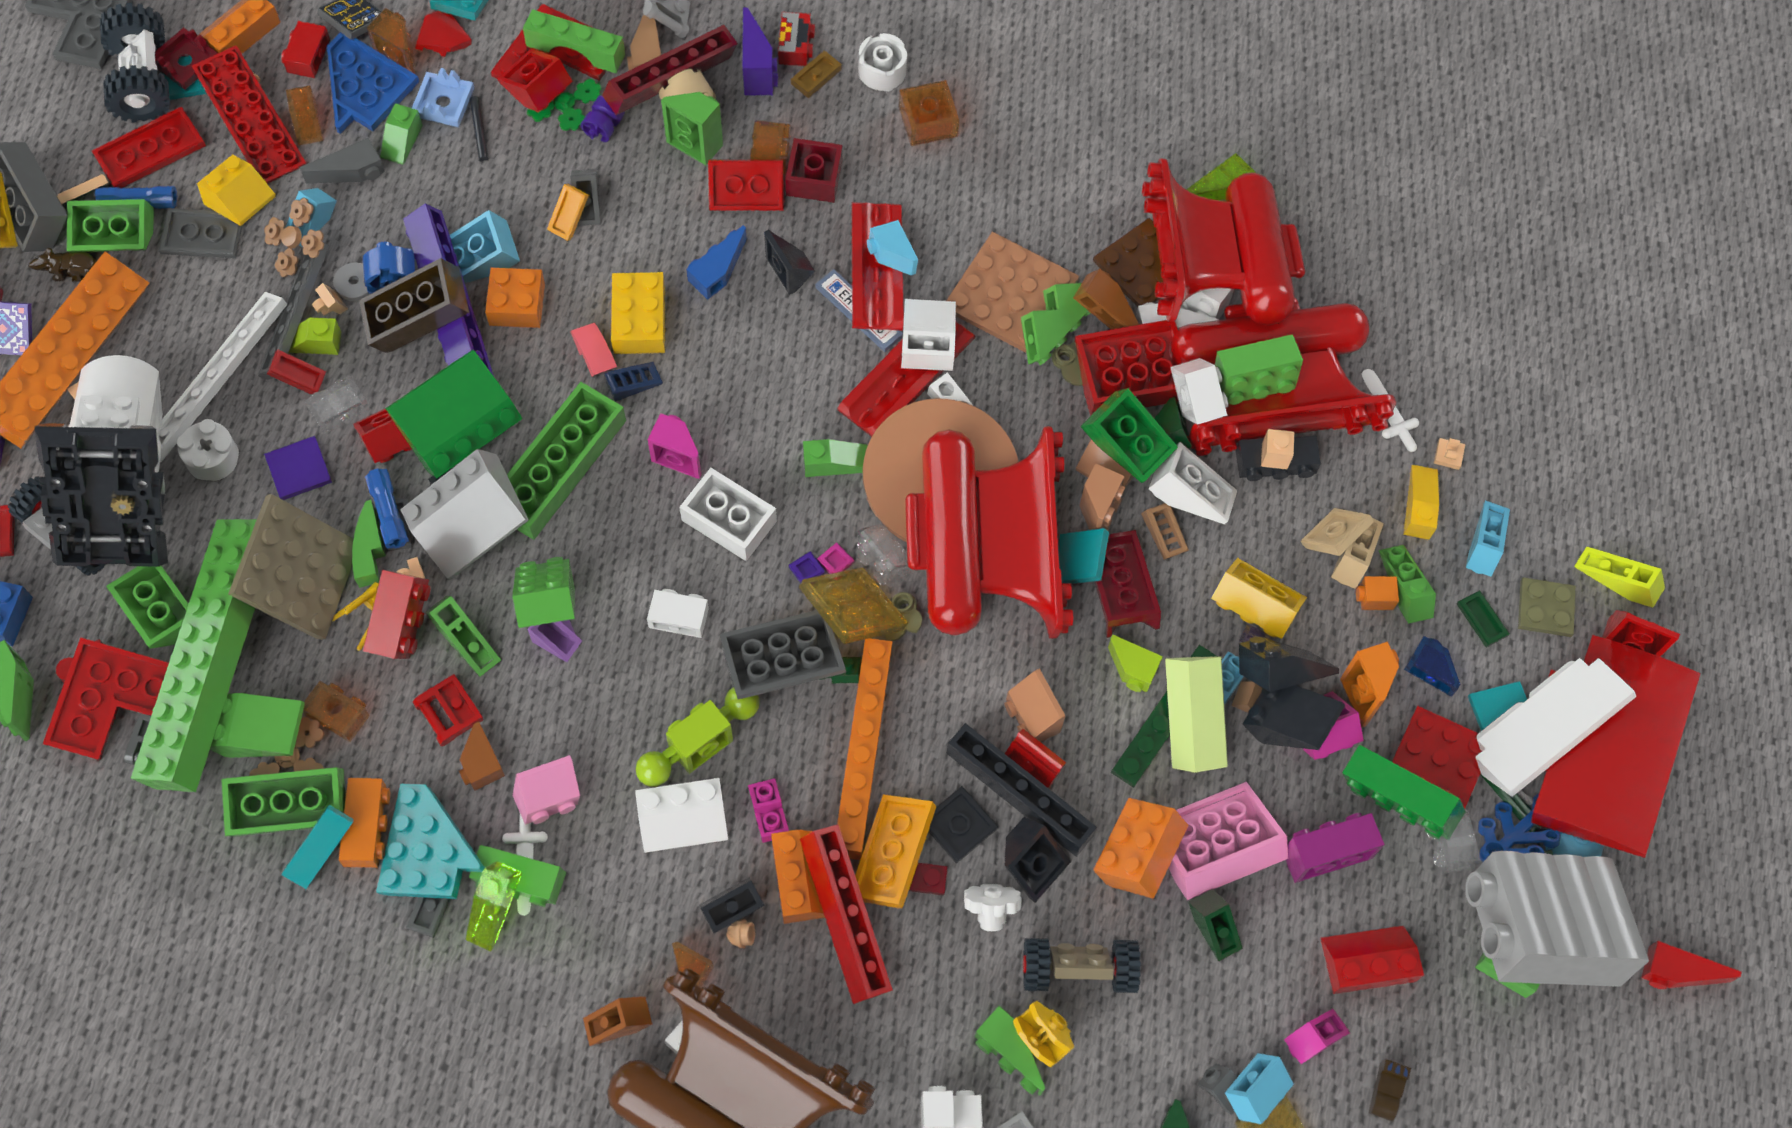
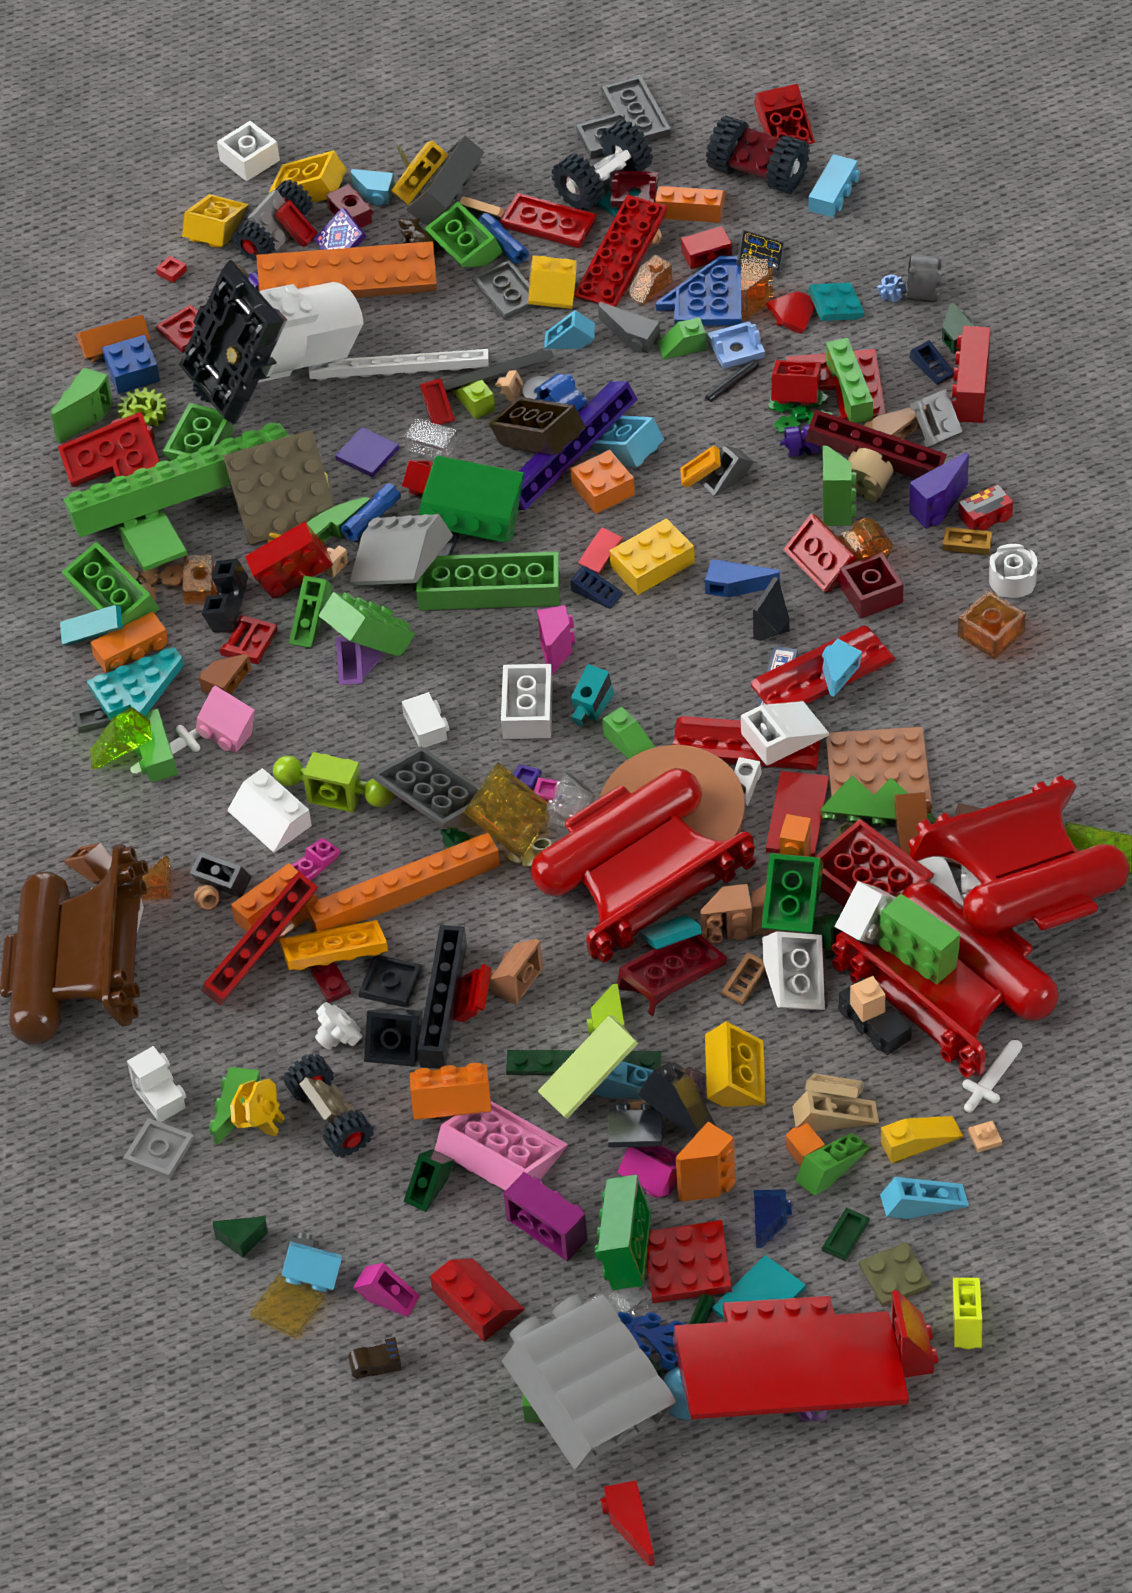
camera: 65 degrees right, 15 degrees down
(59, 633) = (149, 403): none -> lime gear
(208, 450) = (337, 395): white brick -> none
(292, 236) = (539, 332): medium nougat plant -> none
(374, 690) = (223, 609): none -> black arch
(754, 448) = (591, 694): none -> teal torso
(1012, 381) = (800, 796): none -> red tile
(1075, 403) = (796, 836): none -> orange brick
(1549, 723) = (768, 1304): white slope -> none

